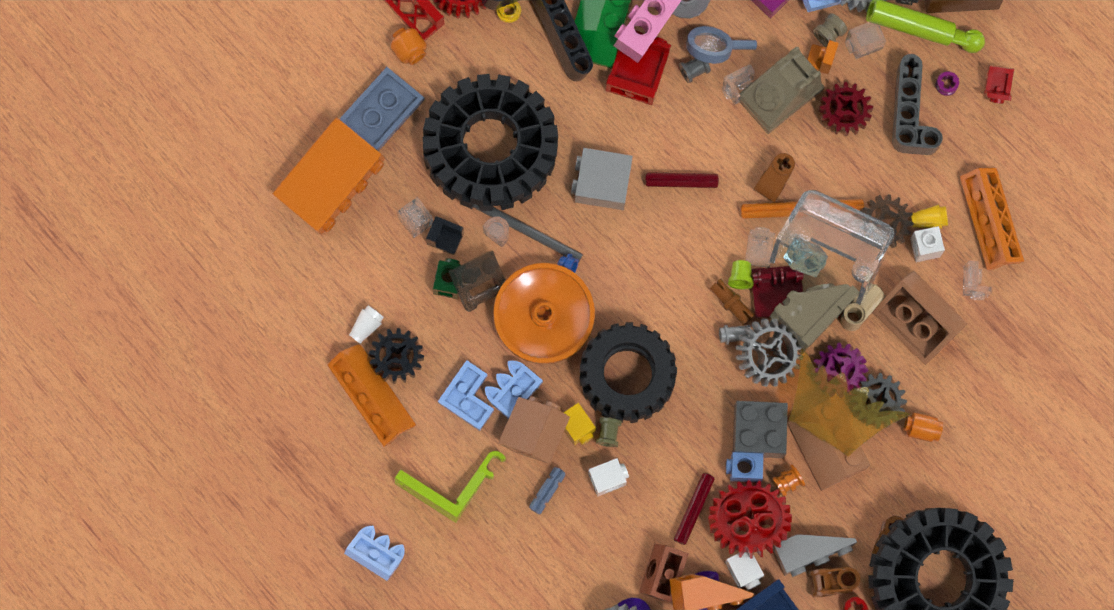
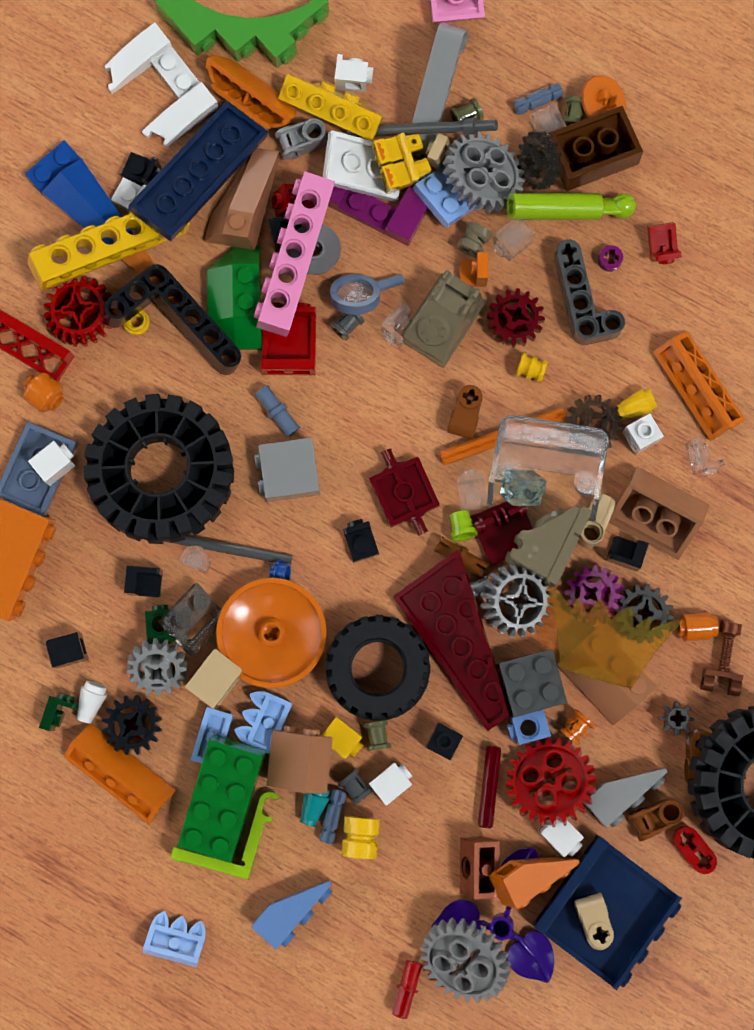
camera: 15 degrees left, 5 degrees up
(330, 324) = (53, 711): none -> dark green bracket
(359, 273) = (67, 650): none -> black panel
(399, 107) = (52, 462): none -> white brick
(415, 217) = (106, 572): clear brick -> none
(436, 301) = (155, 662): none -> light grey gear
(455, 441) = (221, 798): none -> green brick
(479, 560) = (284, 914): none -> medium blue slope
(481, 338) = (214, 679): none -> tan piece
(533, 475) = (313, 806): none -> teal cone
(566, 514) = (360, 837): none -> yellow wheel
(575, 470) = (355, 786): none -> dark grey bush
(608, 125) = (277, 411): none -> sand blue pin
(647, 259) = (360, 540): none -> black bracket
(666, 455) = (444, 741): none -> black brick
(690, 180) = (370, 444): dark red axle -> none
(699, 229) = (404, 492): none -> dark red plate
(704, 357) = (450, 624): none -> dark red wing
(846, 156) = (531, 367): none -> yellow bush
(872, 502) = (671, 724): none -> dark grey gear
(880, 344) = (627, 553): none -> black panel
(951, 440) = (729, 631): none -> copper bar

